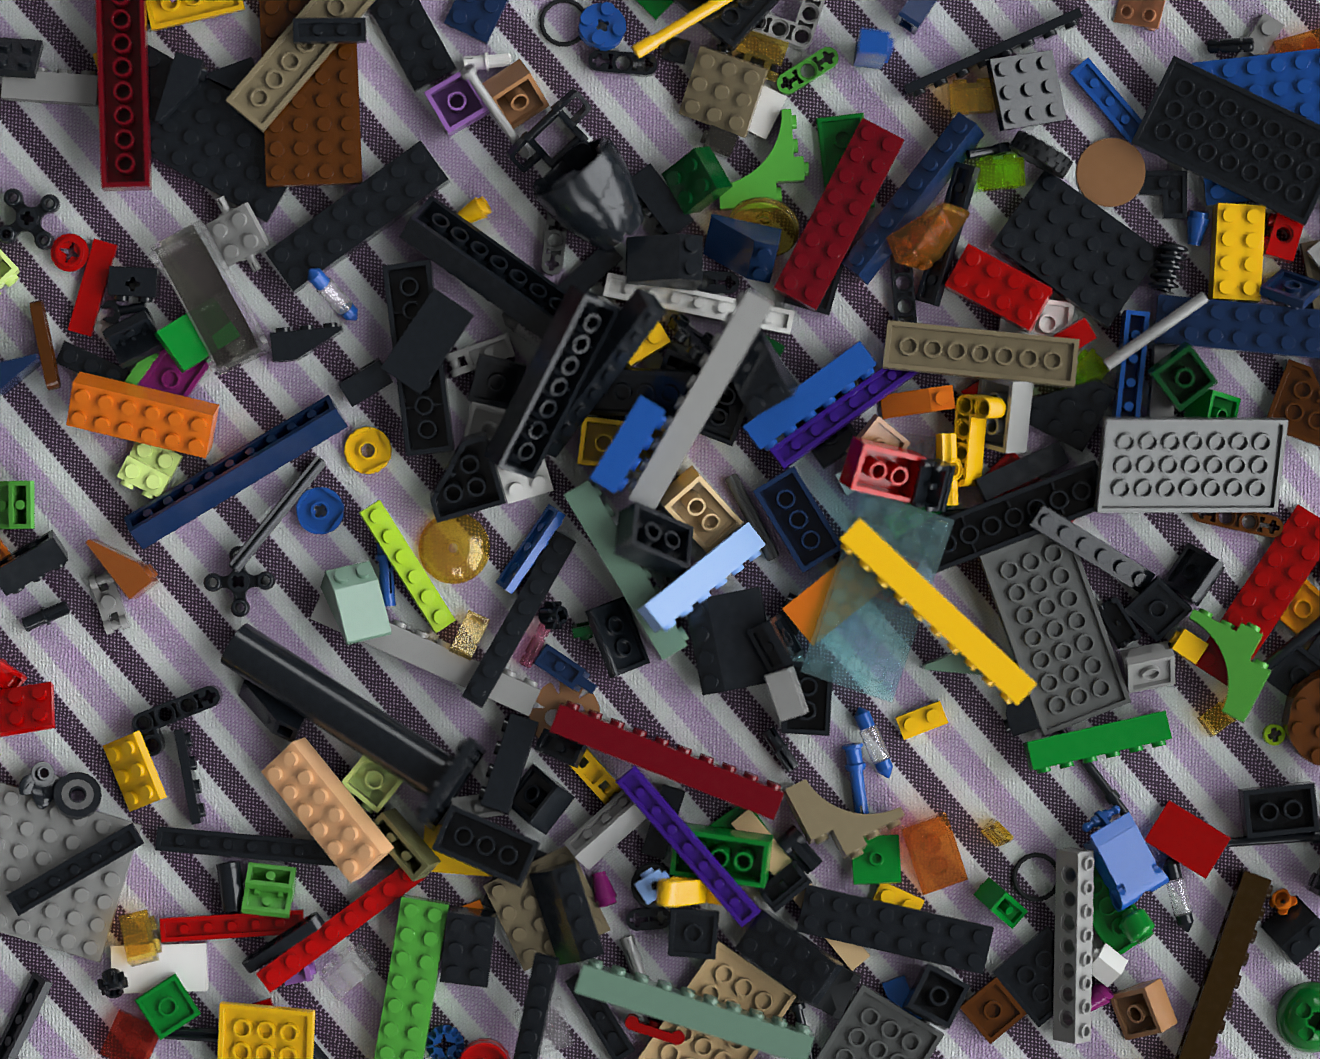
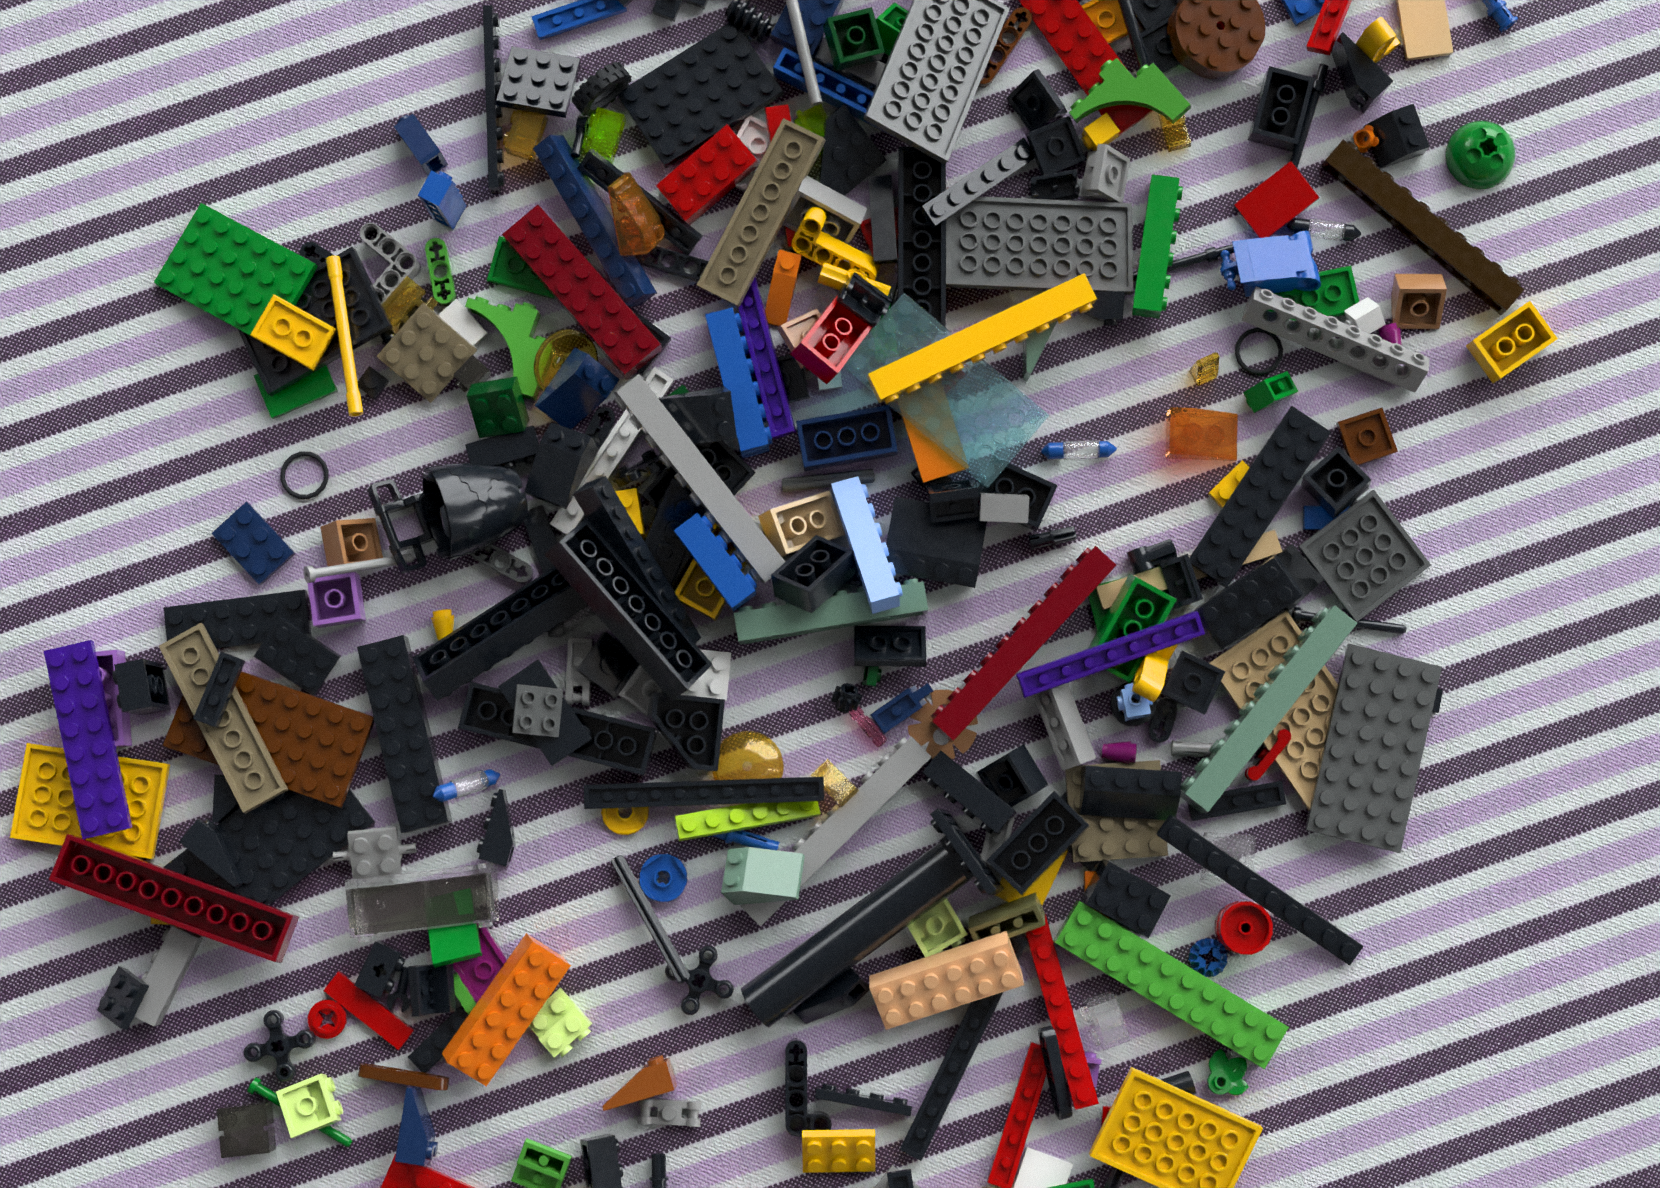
camera: 65 degrees left, 5 degrees down
(230, 885) = (983, 1101): black pin -> none
(235, 472) = (595, 943): dark blue brick -> none
(269, 890) = (1000, 1066): bright green brick -> none
(365, 382) = (560, 788): black hinge -> none
(391, 87) = (297, 656): none -> black plate
(412, 518) = (704, 792): none -> black plate
(425, 334) = (537, 710): none -> dark grey hinge
(487, 61) = (311, 555): white axle -> none
(518, 619) = (838, 731): black plate -> none
(530, 549) = (776, 695): blue plate -> none
(560, 748) = (972, 739): black plate -> none
(594, 774) = (1008, 718): yellow plate -> none
(604, 66) = (350, 448): black beam -> none
(606, 14) = (319, 428): blue plate -> none
(655, 843) = (1093, 685): black tile -> none
(848, 829) = (1150, 503): dark tan arch -> none
(855, 767) = (1094, 475): blue pin -> none
(879, 862) = (1188, 489): green plate -> none
(921, 720) = (1075, 399): yellow plate -> none
(1030, 976) = (1348, 390): black plate -> none
(1110, 172) = (643, 37): medium nougat sticker -> none
(1136, 925) = (1338, 275): green head -> none
(1267, 730) = (1215, 85): lime bush -> none

